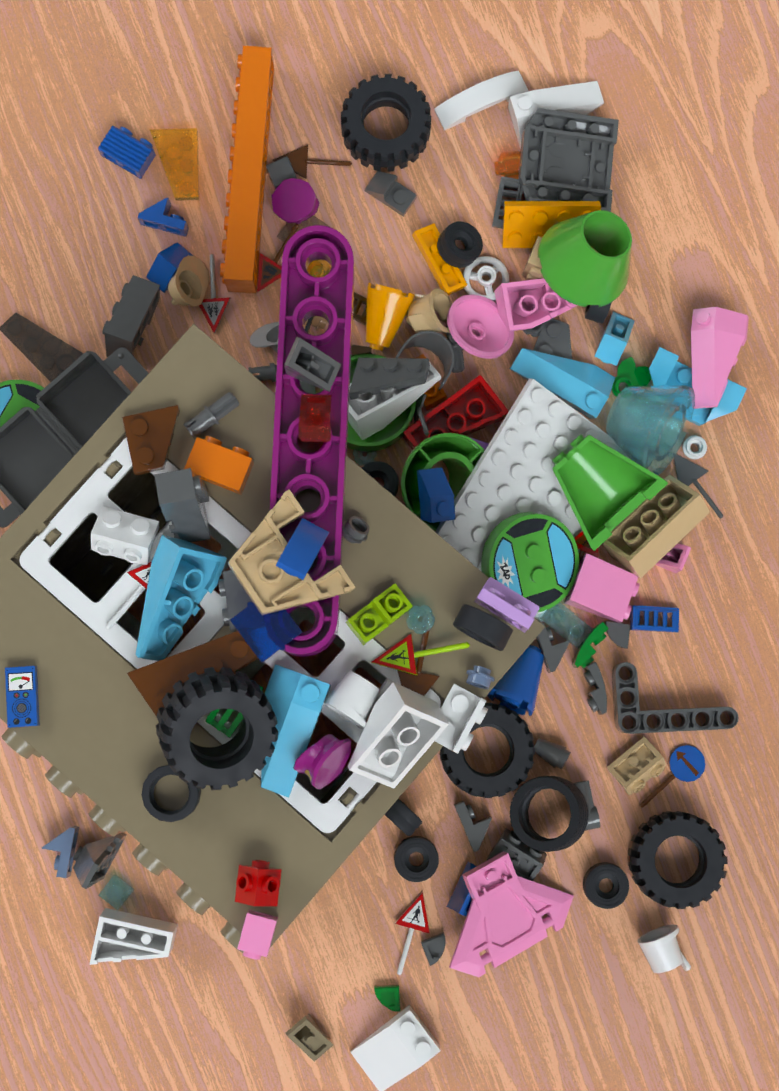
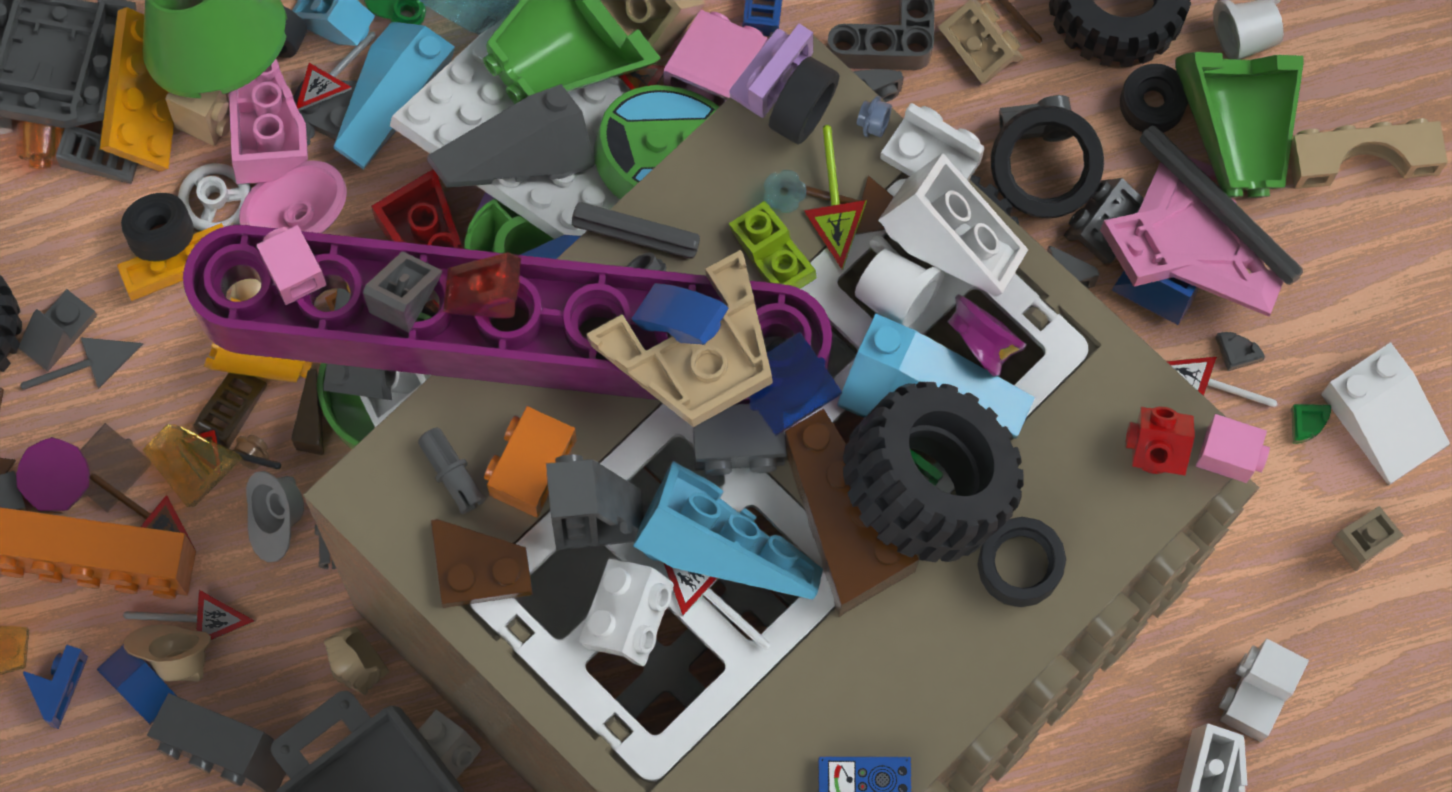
camera: 85 degrees left, 10 degrees down
(202, 968) = (1266, 682): none -> white brick
(323, 291) = (291, 263): none -> bright pink brick
(376, 223) = (103, 357): none -> dark grey piece
(386, 521) = (635, 230): none -> dark grey axle
(522, 467) = (528, 139): none -> dark grey wedge
(529, 932) = (1221, 205): none -> dark grey axle
(564, 337) = (322, 86): none -> piece
(583, 1065) = (1412, 148): none -> tan arch
(595, 947) = (1244, 116): none -> bright green cone

